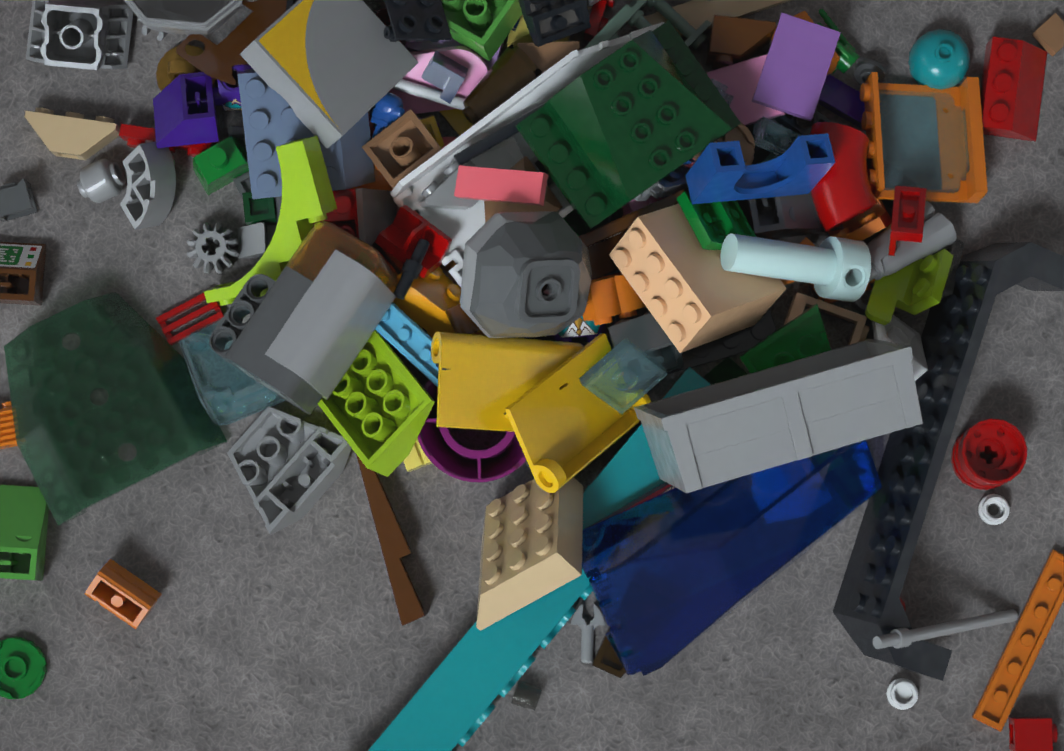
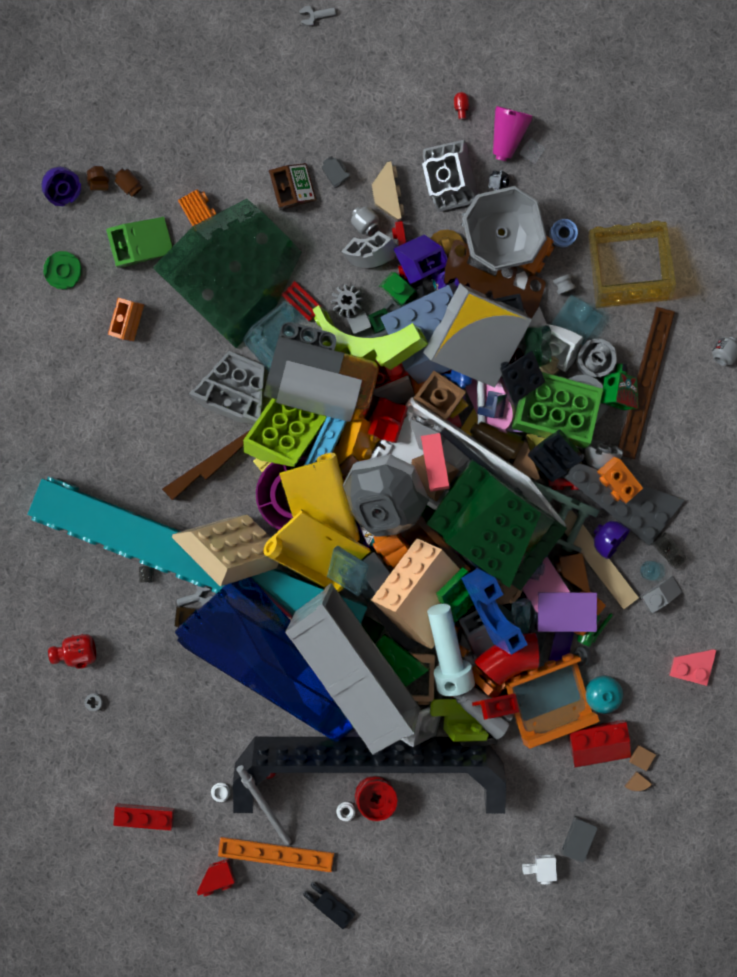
camera: 75 degrees right, 5 degrees up
(411, 269) = (369, 425): black bar -> none

